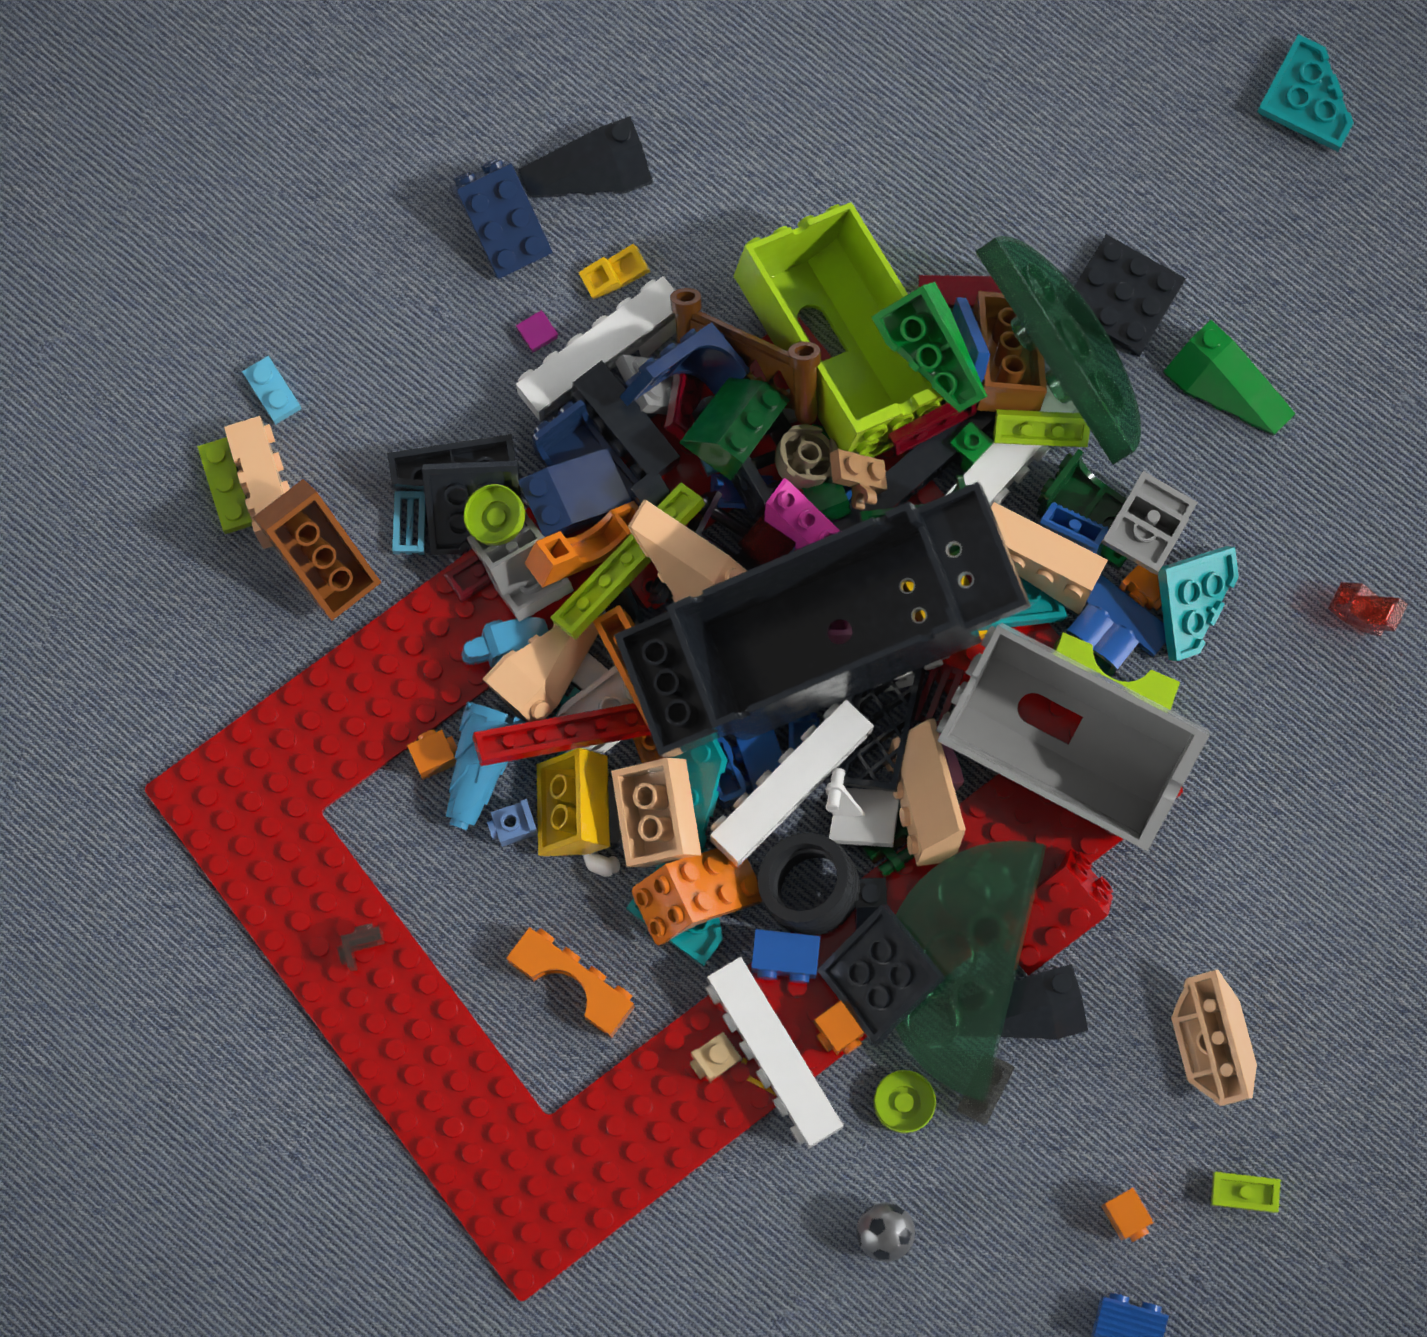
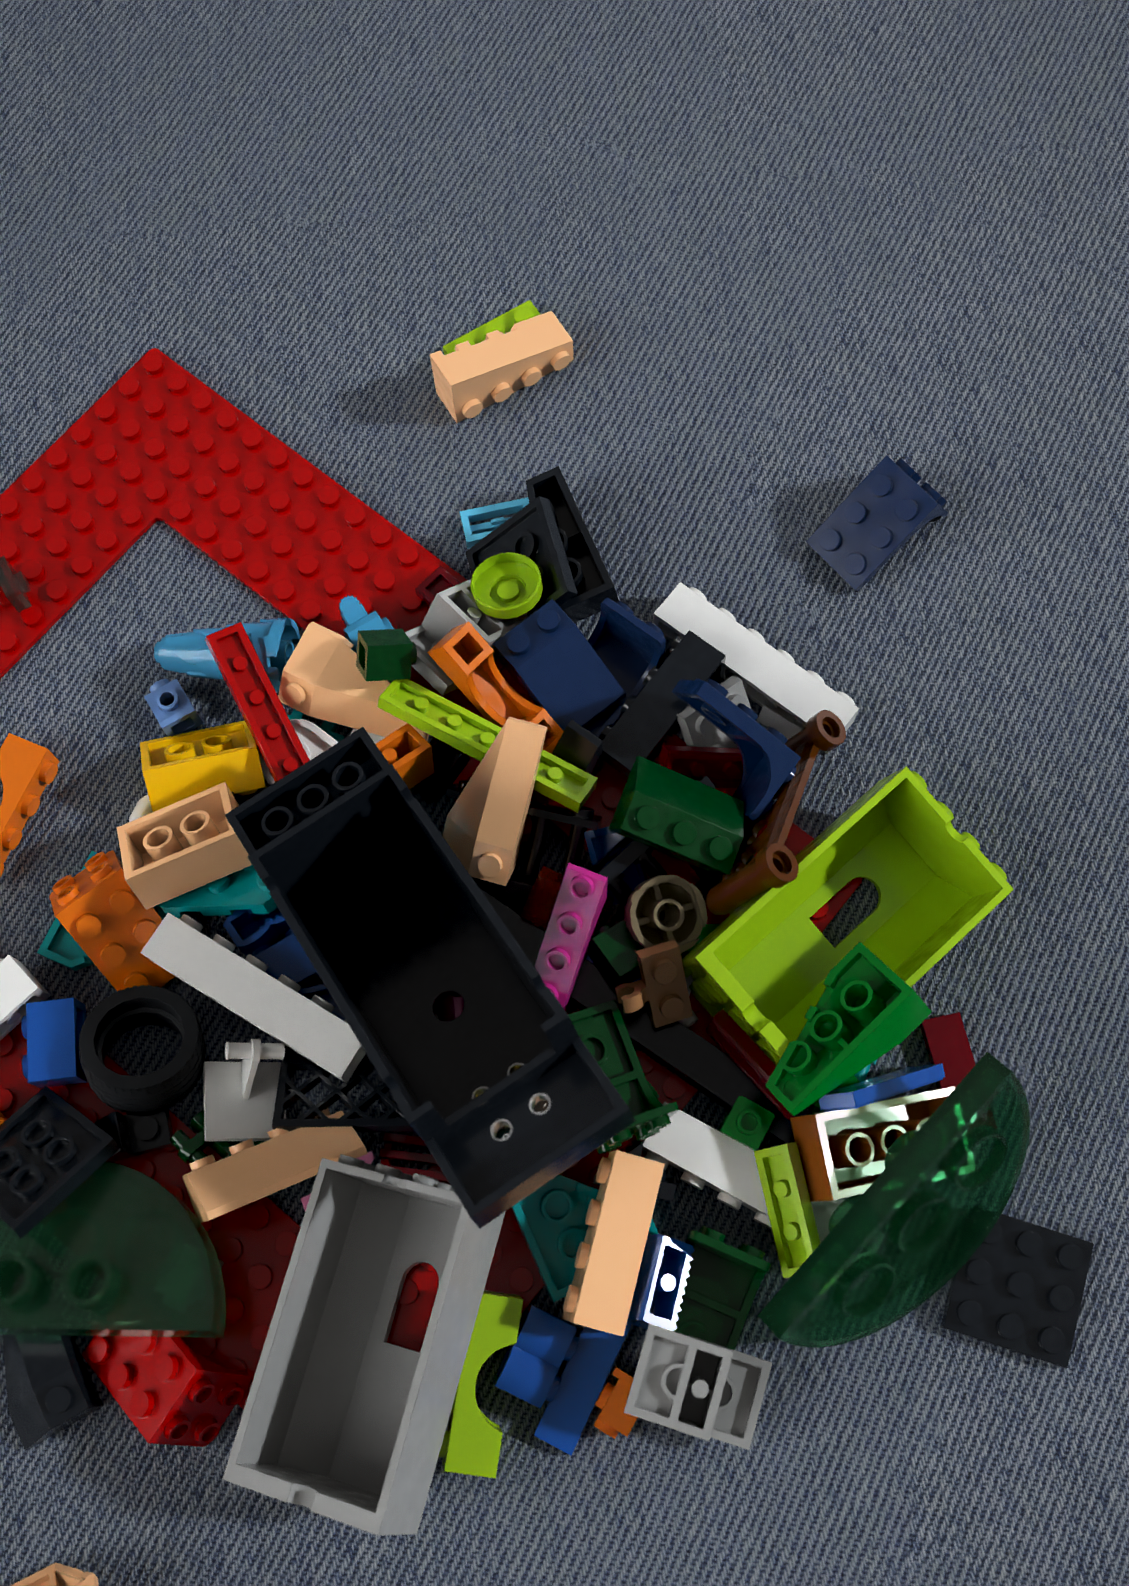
camera: 80 degrees right, 5 degrees down
(271, 390) = (612, 354): medium azure plate -> none
(317, 549) = (425, 419): dark orange brick -> none
(433, 753) = (235, 602): orange brick -> none
(535, 622) = (385, 654): none -> dark green brick
(537, 331) = (756, 597): magenta tile -> none
(597, 162) = (979, 608): black wedge -> none
(614, 273) = (852, 662): yellow slope -> none
(1193, 598) = (621, 1474): teal plate -> none
(1223, 375) = (942, 1455): green wedge -> none

